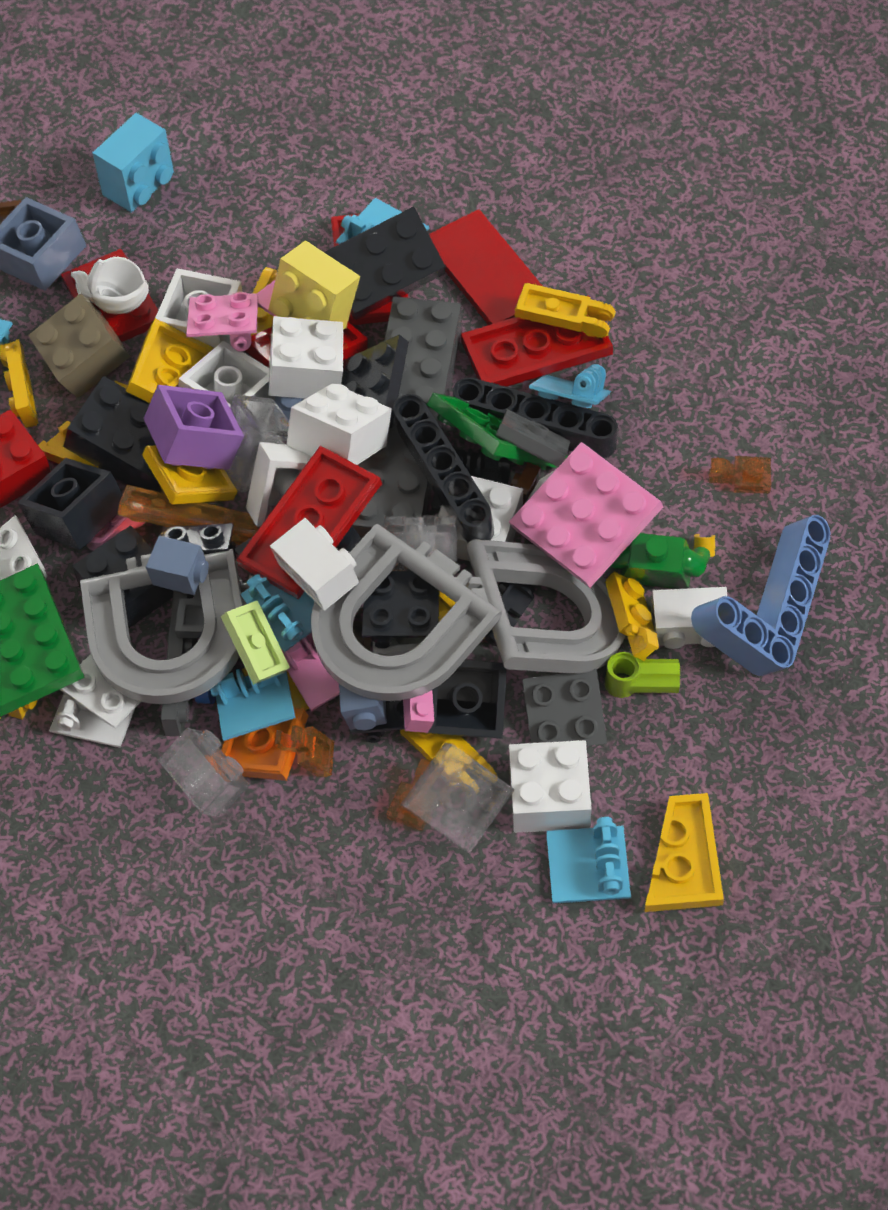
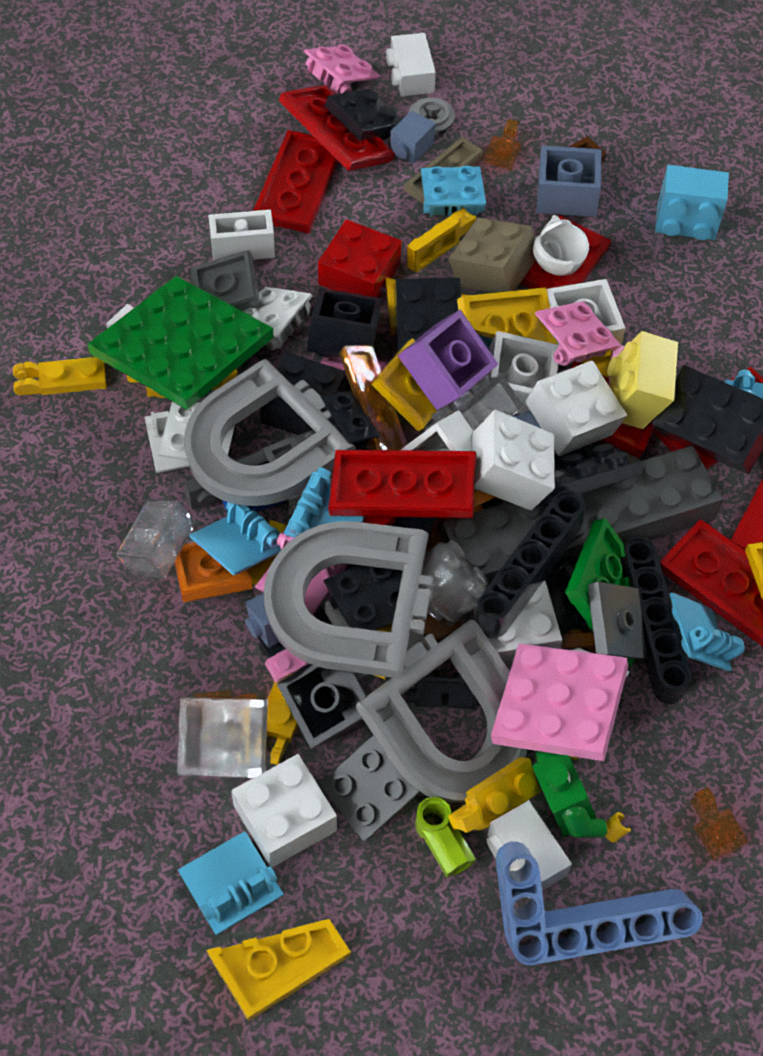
camera: 55 degrees right, 0 degrees up
(177, 565) = (306, 411): sand blue brick -> none
(255, 642) = (272, 505): yellowish green plate -> none
(312, 749) = (221, 606): clear orange plate -> none
(315, 563) = (352, 502): white brick -> none

